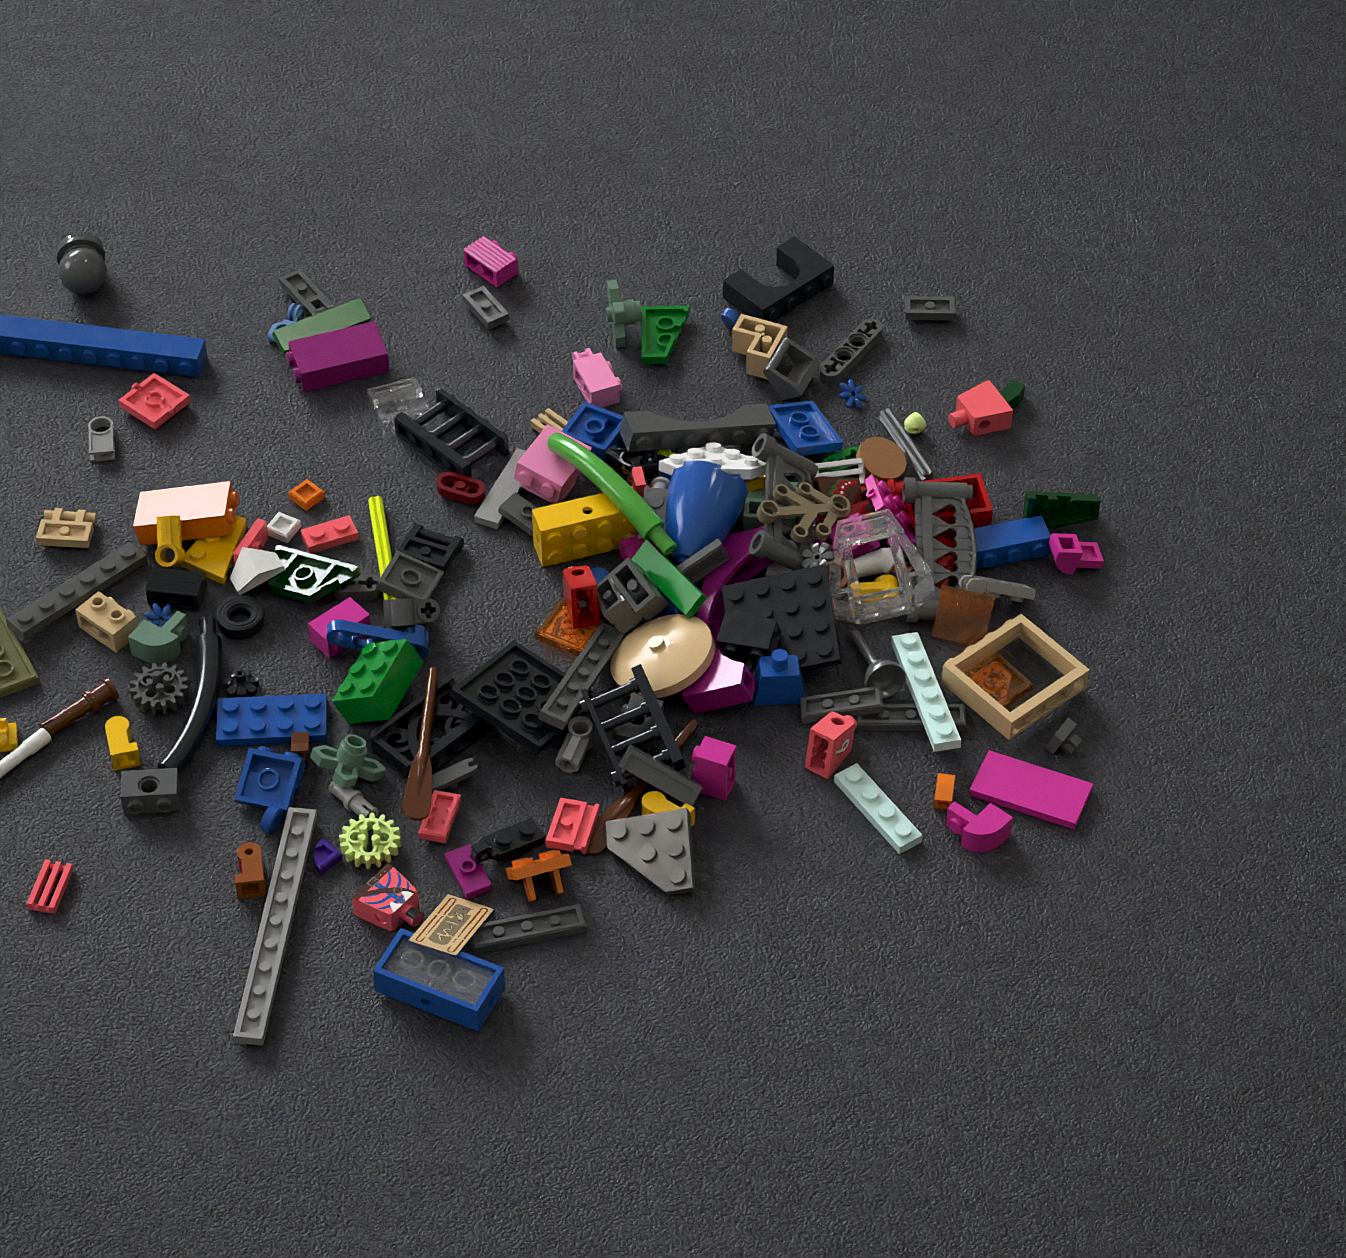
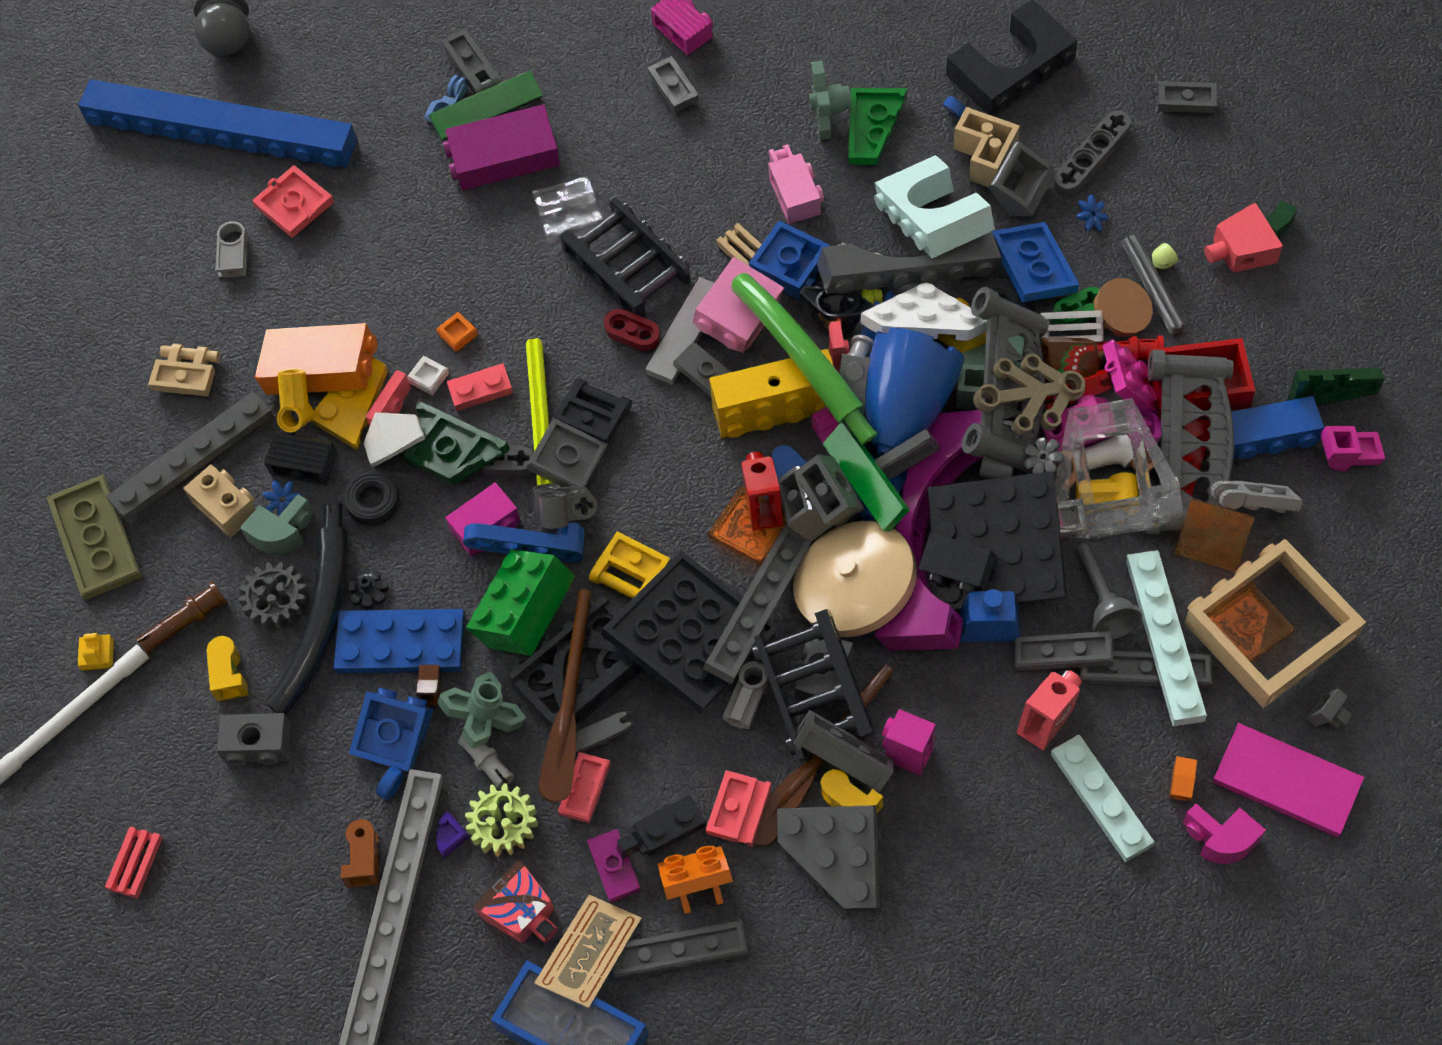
camera: 10 degrees right, 15 degrees up
(465, 651) = (631, 559): none -> yellow plate
(711, 390) = (937, 228): none -> light aqua arch

